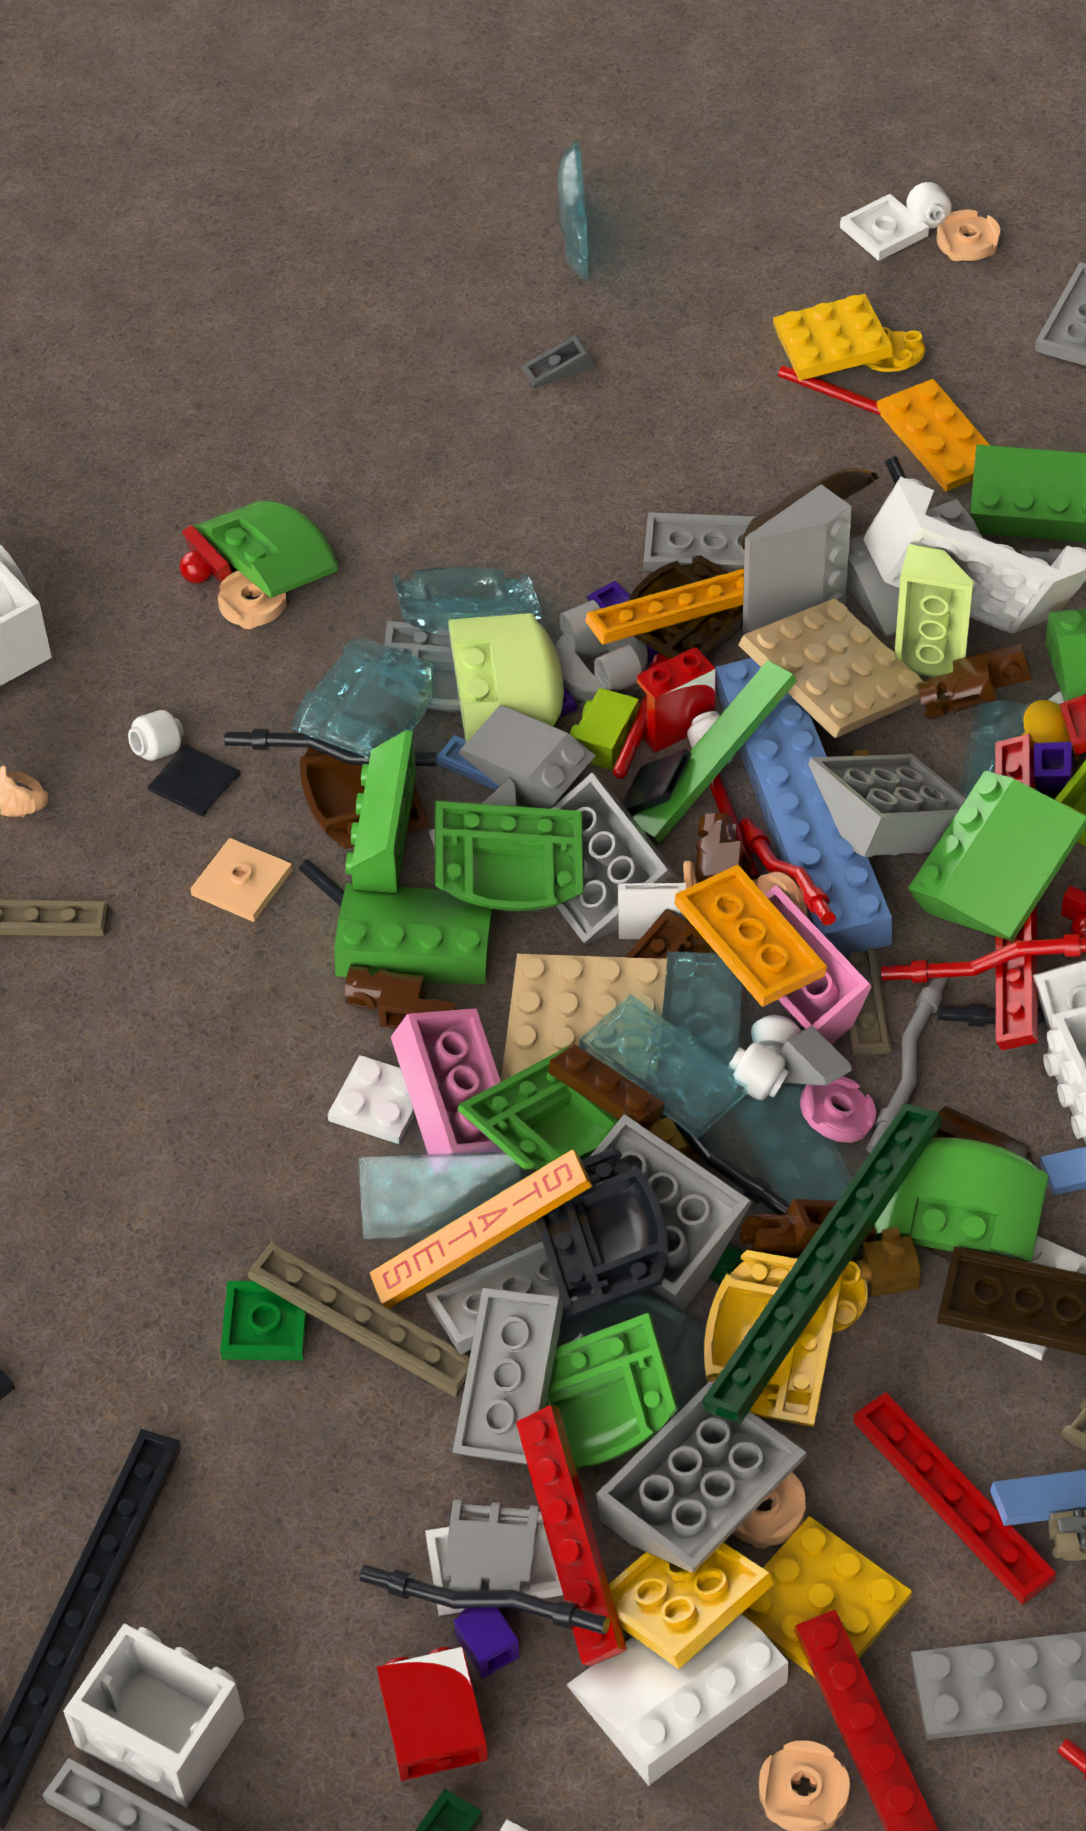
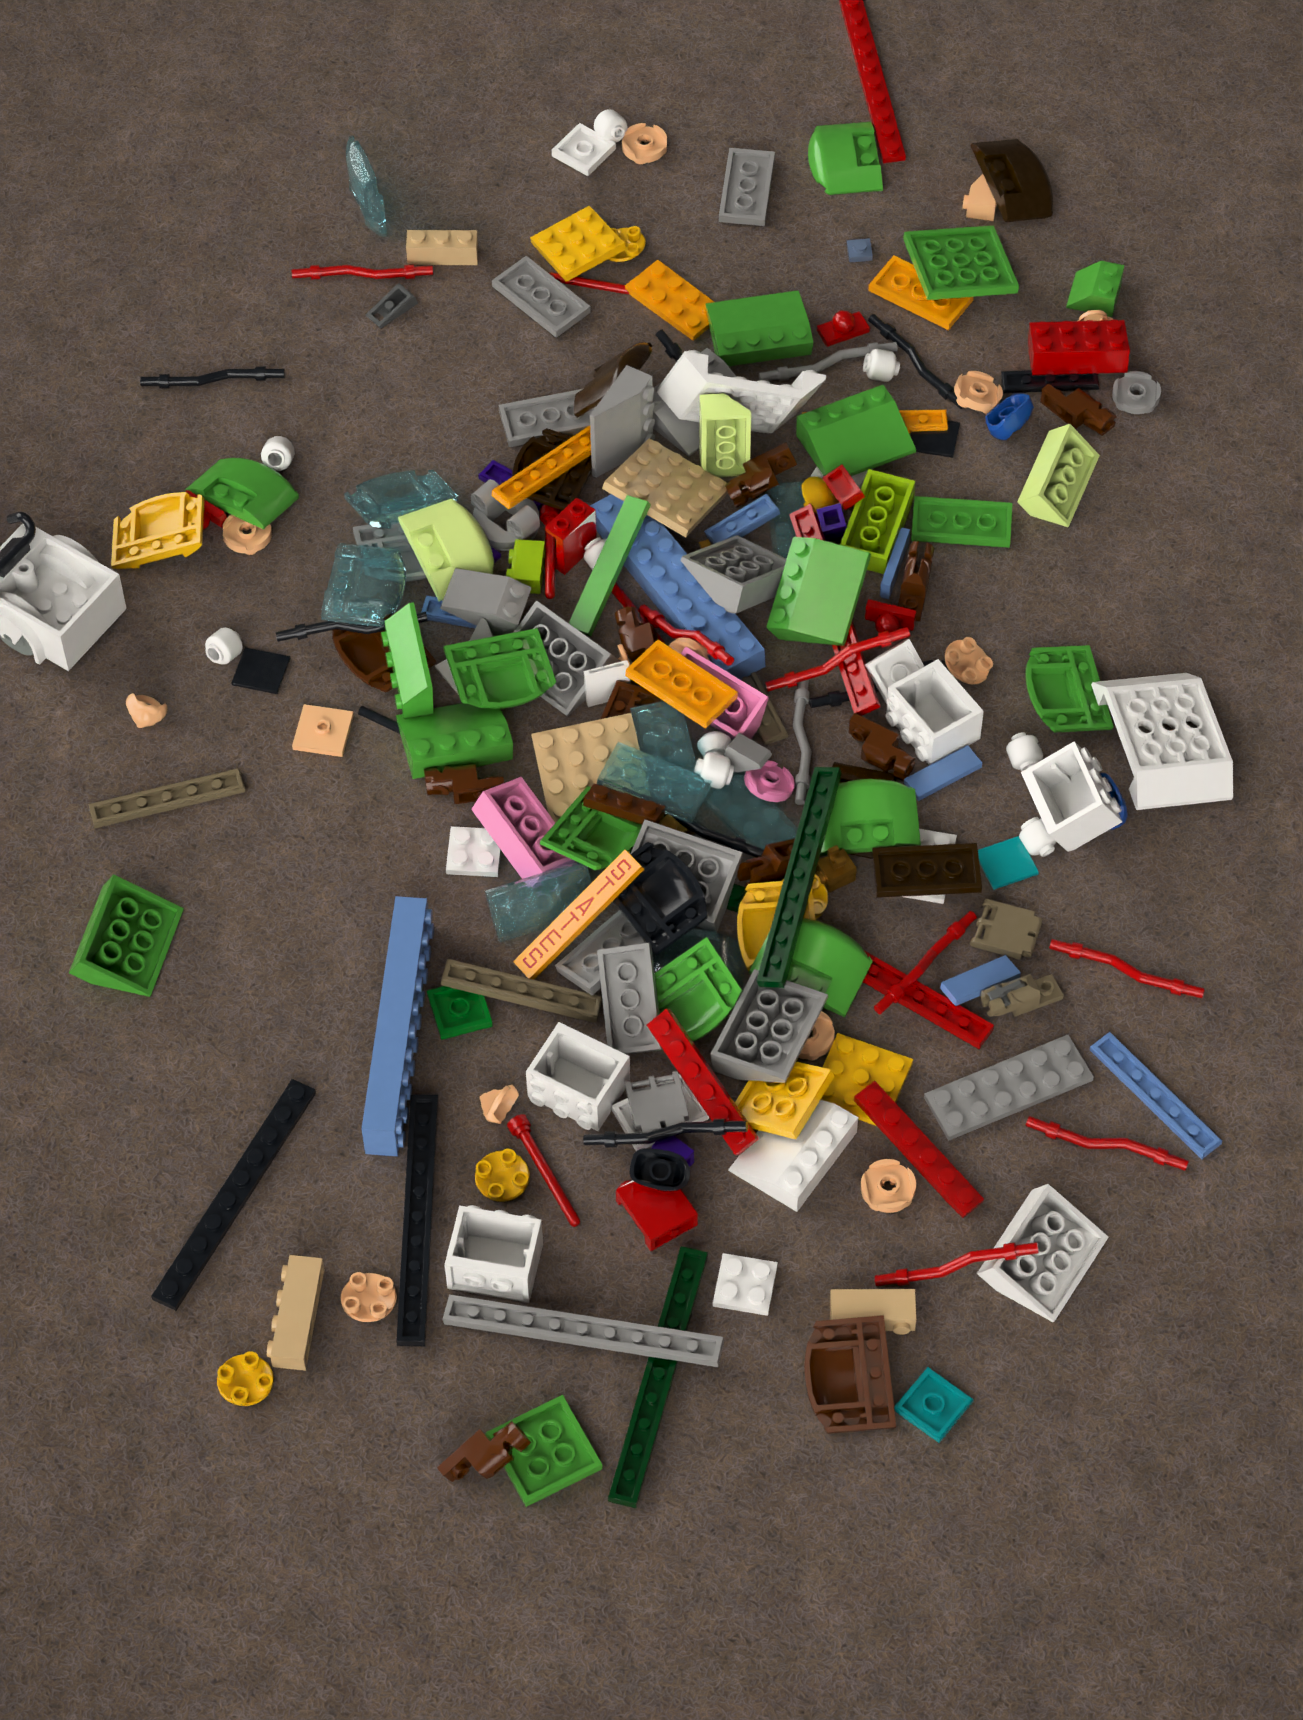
camera: 20 degrees left, 5 degrees up
(134, 569) = (158, 530): none -> yellow slope
(156, 1325) = (397, 1027): none -> medium blue brick
(224, 1592) = (502, 1175): none -> yellow dish
(262, 1479) = (498, 1103): none -> light nougat piece
(280, 1525) = (520, 1127): none -> red piece
(332, 508) = (278, 453): none -> white head
(353, 406) = (164, 381): none -> black bar
(387, 1473) = (577, 1077): none -> white container
(446, 1657) = (659, 1169): none -> black piece
(596, 326) = (316, 272): none -> red bar
(651, 304) = (442, 247): none -> tan brick
(655, 782) = (576, 595): black piece -> none
(759, 392) = (541, 296): none -> light grey plate
(826, 1405) = (827, 963): none -> bright green slope
(918, 1478) = (897, 991): none -> red bar
(932, 737) = (744, 520): none -> medium blue tile
(1021, 1102) = (881, 747): none -> reddish brown plate

